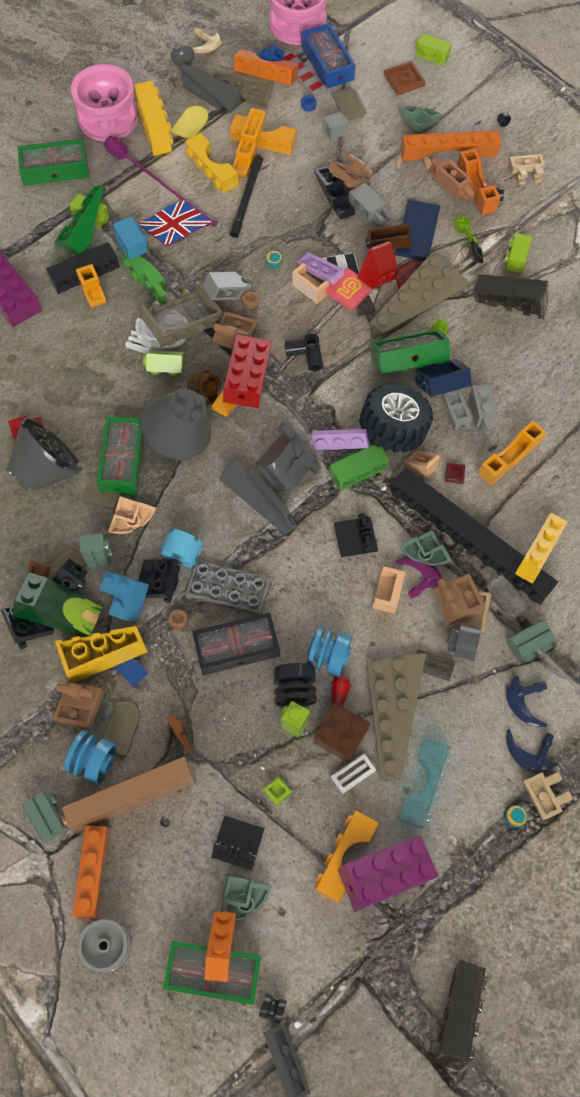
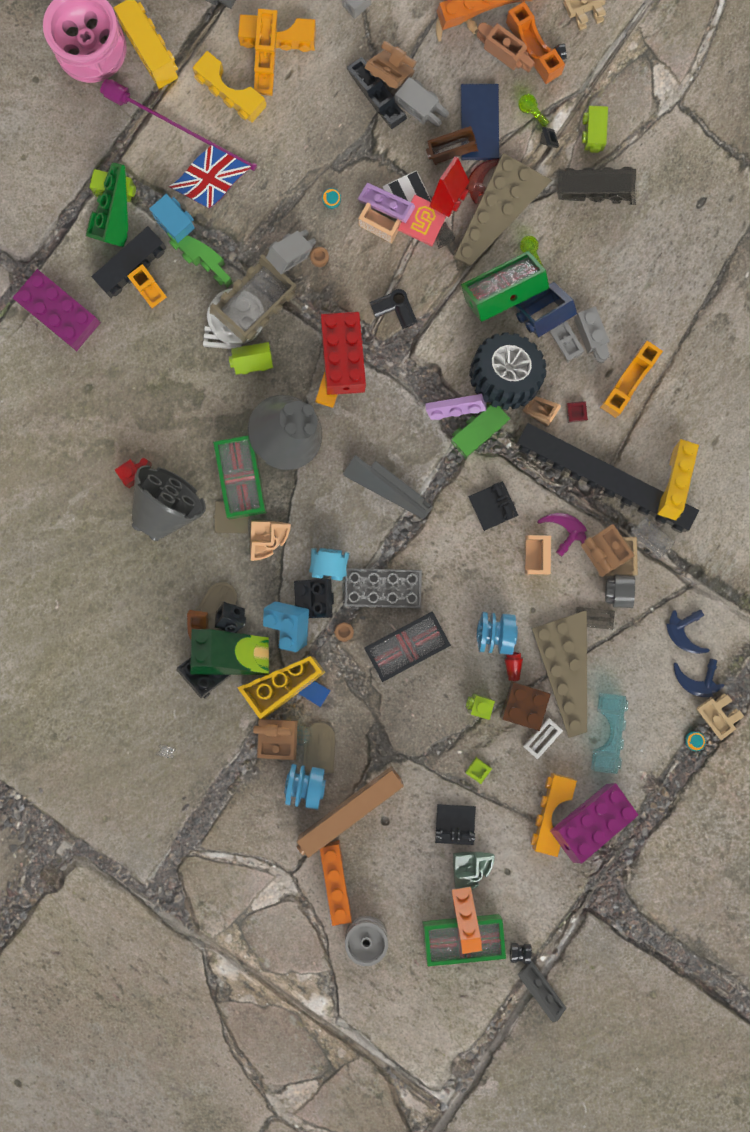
camera: 15 degrees left, 20 degrees up
(45, 816) = (279, 845): sand green brick -> none
(53, 162) = (51, 131): green brick -> none
(95, 550) = (246, 587): sand green brick -> none
(177, 727) = (373, 736): dark orange plate -> none
(191, 122) = (189, 32): light yellow window -> none
(205, 384) = (301, 380): reddish brown cone -> none
(230, 326) = (313, 300): medium nougat plate -> none
(237, 223) = (280, 163): black piece -> none
(287, 460) = (408, 446): dark grey piece -> none
(294, 684) = (472, 674): black wheel -> none
(426, 550) = (565, 503): sand green brick -> none
(461, 1016) = (678, 920): clear smoke wedge -> none
(531, 640) = (682, 574): sand green brick -> none

